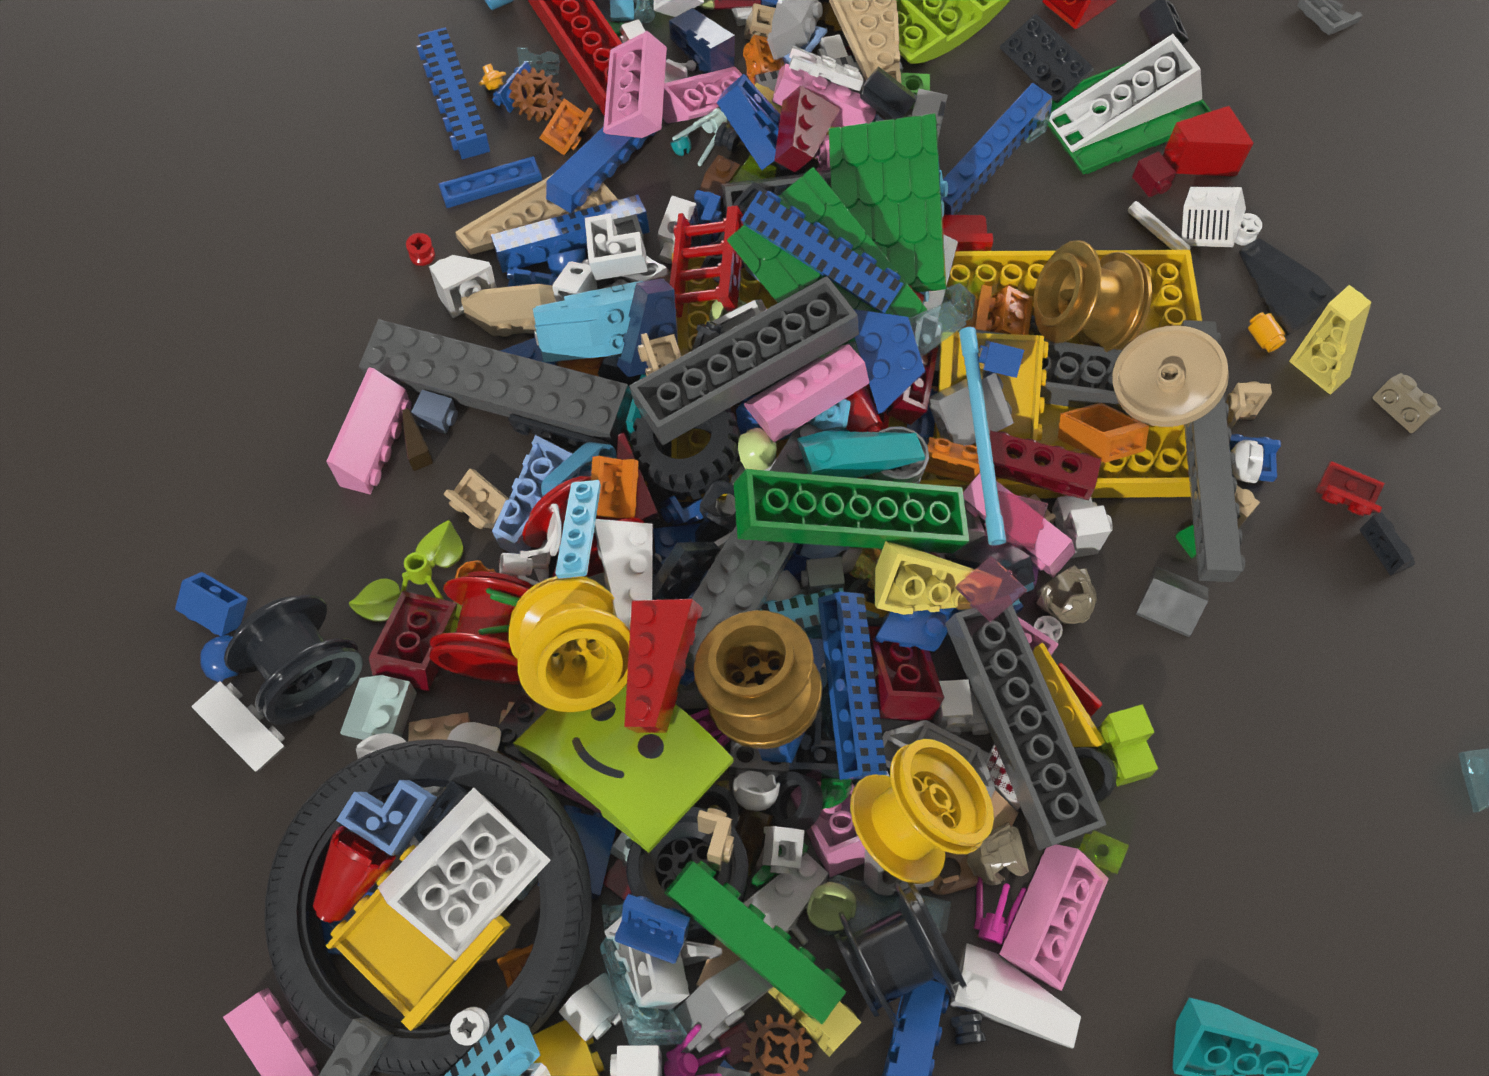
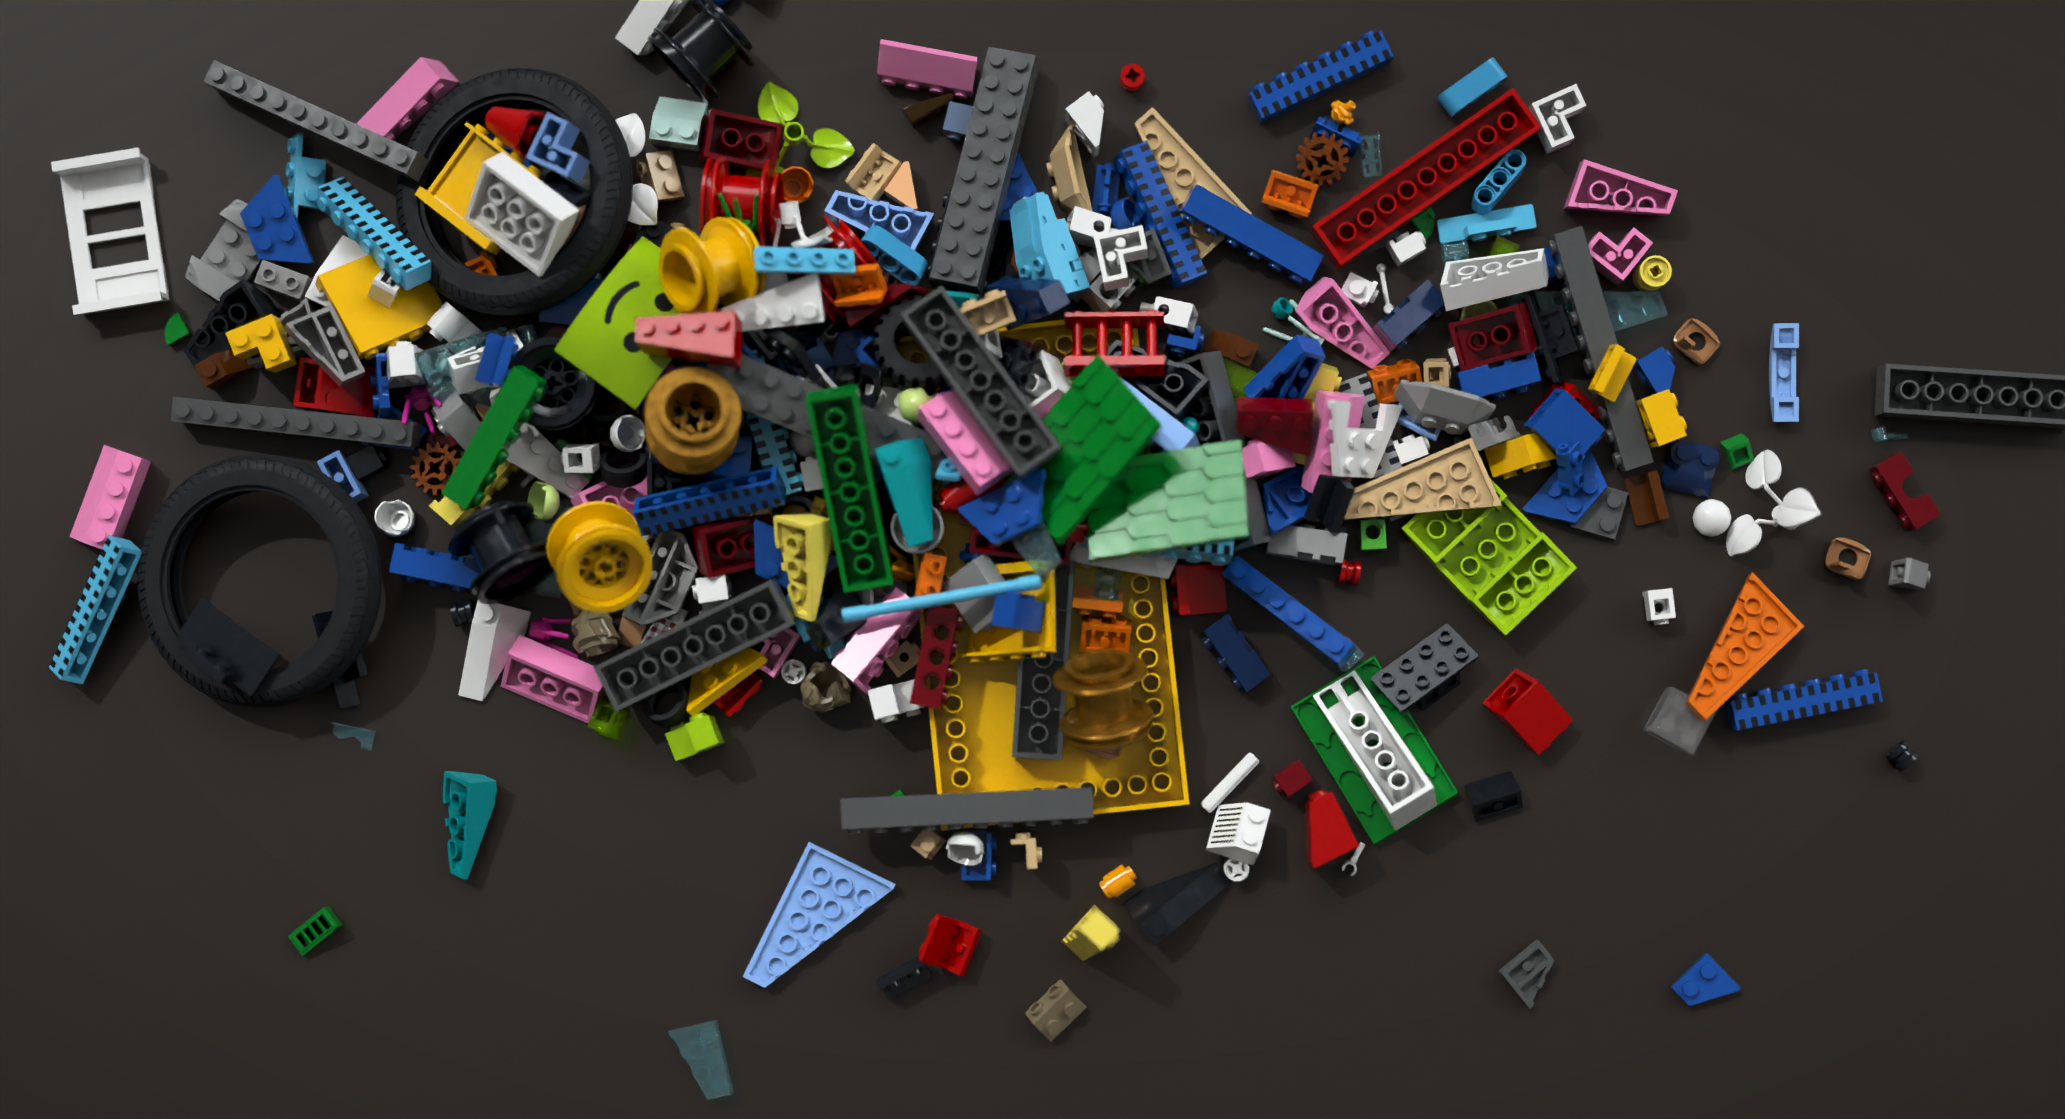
camera: 90 degrees right, 20 degrees up
(477, 1023) = (429, 240): white wheel -> none
(490, 182) = (1220, 130): blue tile -> none
(500, 470) = (902, 188): none -> light nougat slope
(635, 87) = (1320, 254): bright pink slope -> none
(721, 846) = (558, 403): tan bracket -> none
(822, 252) = (1085, 440): blue brick -> none
(835, 791) = (631, 493): green tile -> none
(952, 112) = (1349, 572): none -> red wheel
(991, 589) = (796, 609): clear pink piece -> none
(1021, 519) = (872, 636): clear pink piece -> none
(1027, 208) = (1235, 654): none -> dark blue wedge
(1103, 432) = (957, 724): orange window -> none
(1170, 376) = (1025, 770): tan dish -> none
(1173, 601) = (834, 781): dark grey slope -> none
(1306, 626) = (816, 904): none -> light blue wing

